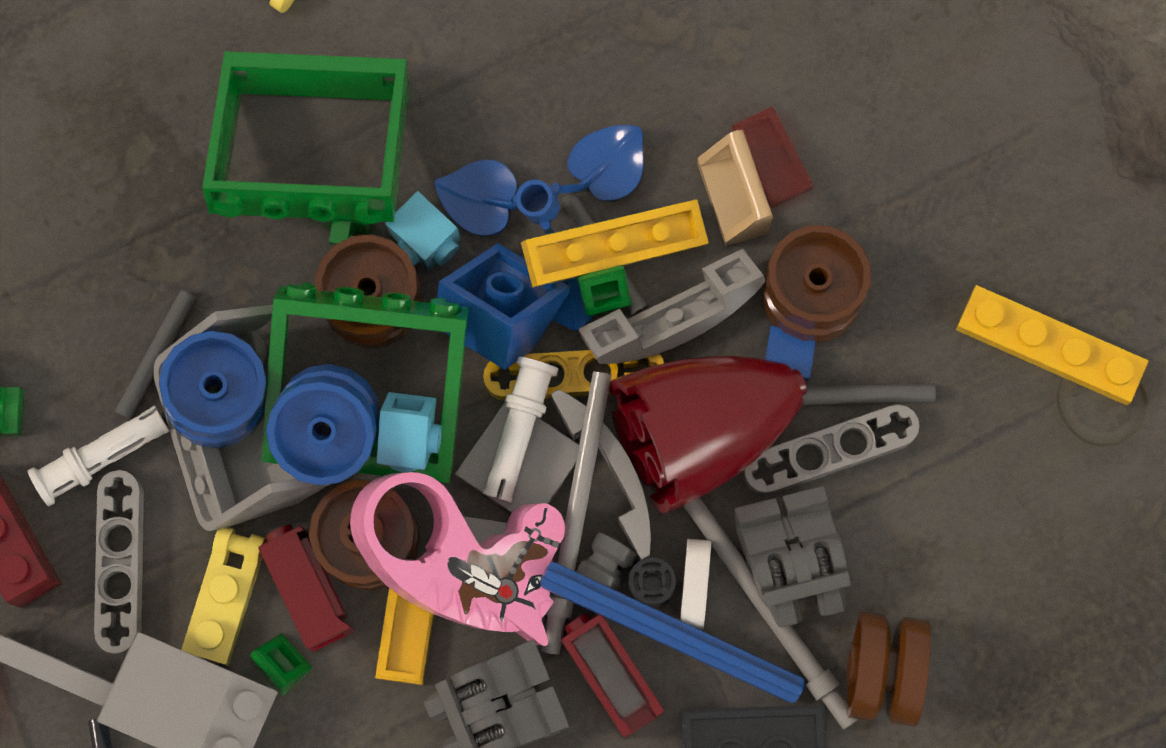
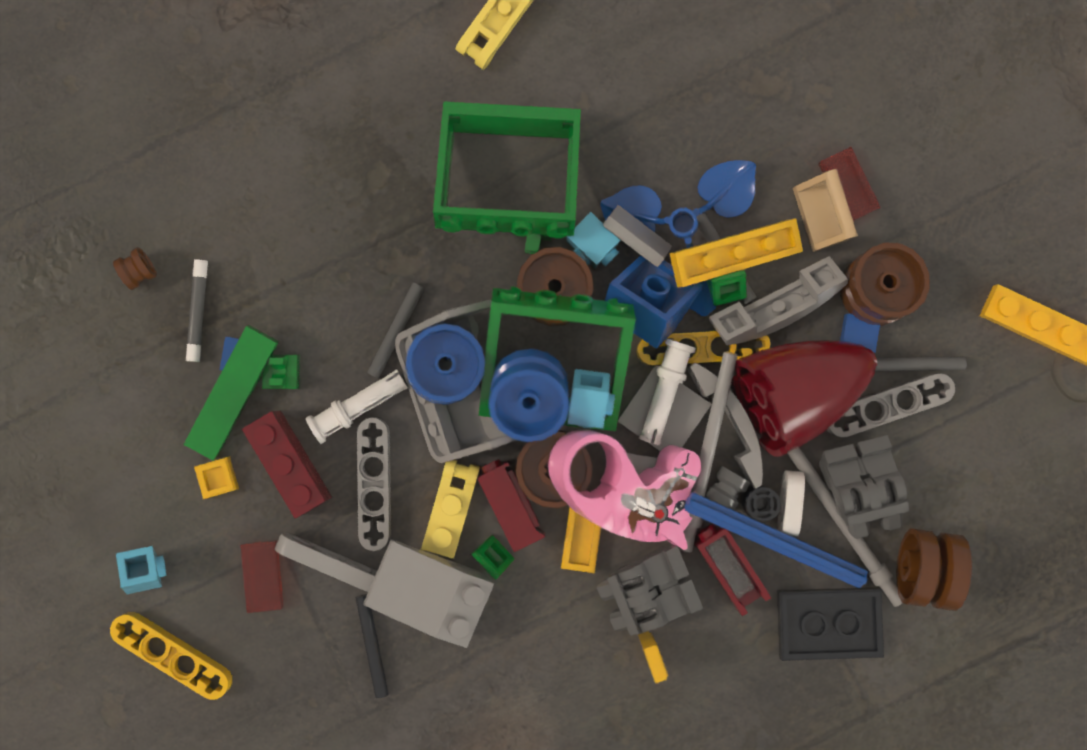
camera: 10 degrees left, 10 degrees up
(480, 222) = (637, 236): none -> light grey tile

